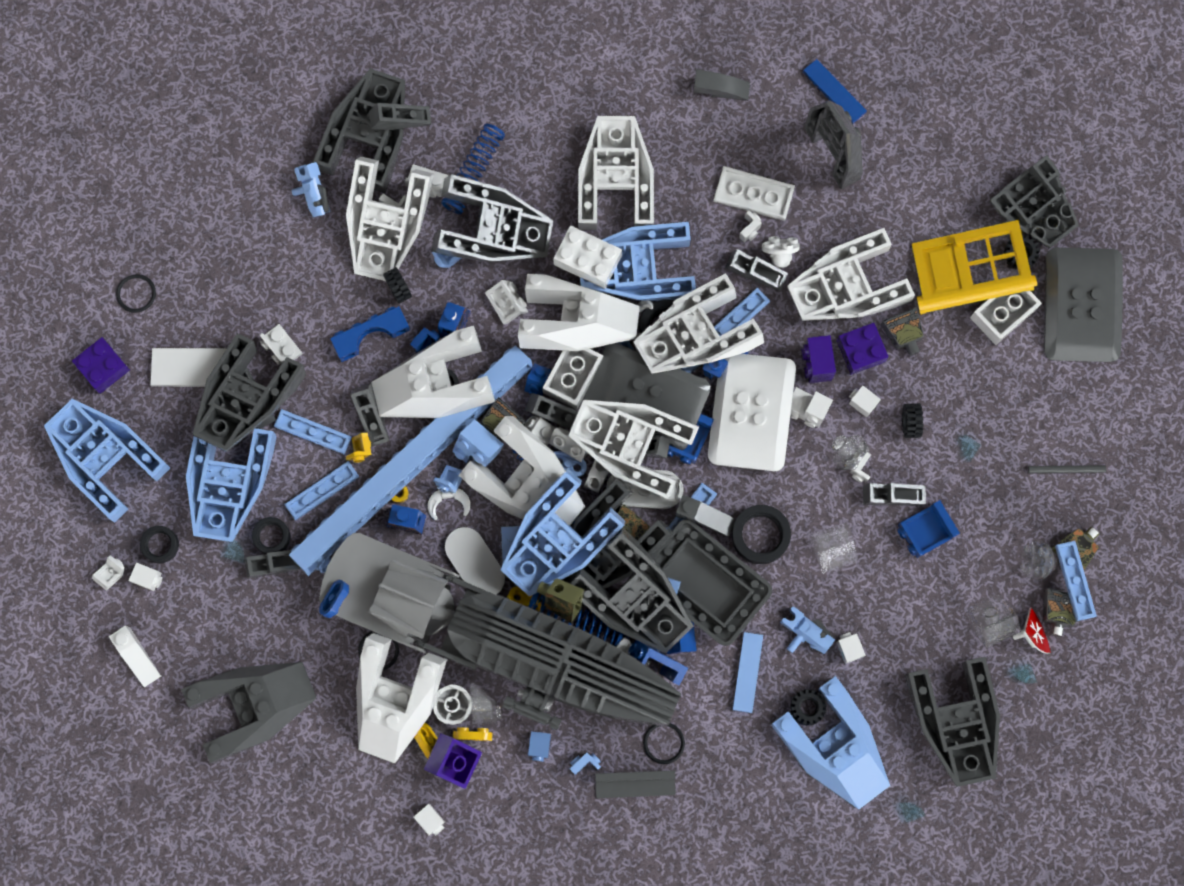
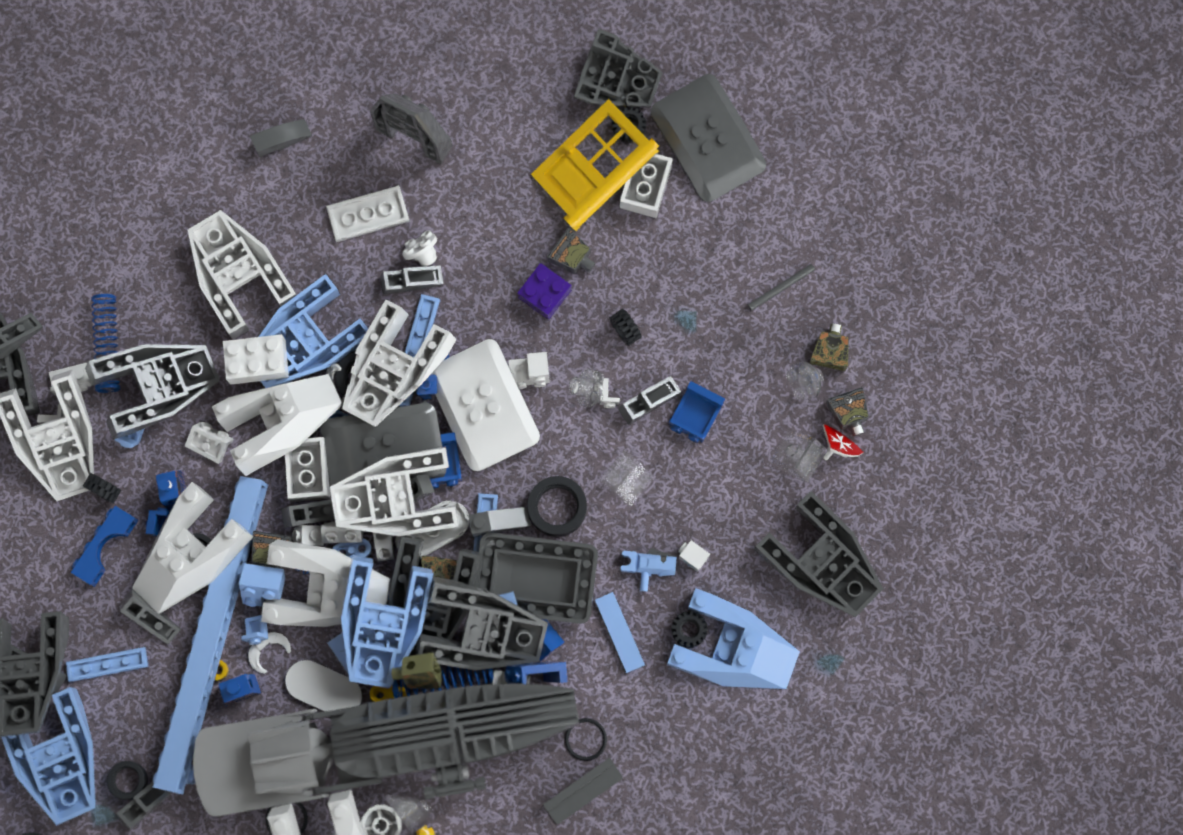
camera: 30 degrees left, 0 degrees up
(280, 344) = (29, 605): white bracket -> none
(321, 490) = (147, 711): light blue tile -> none
(335, 596) = (218, 800): blue plate -> none
(361, 448) = (160, 652): yellow bracket -> none
(537, 379) = (278, 493): blue bracket -> none
(539, 746) = (479, 811): medium blue brick -> none
(578, 763) = (524, 803): light blue bracket -> none
(750, 231) = (385, 248): white bracket -> none
(819, 359) = (513, 323): dark purple brick -> none
(834, 90) = (382, 81): blue tile -> none
(838, 286) = (490, 250): white wedge -> none
(864, 400) = (573, 335): white brick -> none
(1024, 674) = (853, 484): clear light blue tile -> none
(1075, 581) = (846, 378): light blue tile -> none

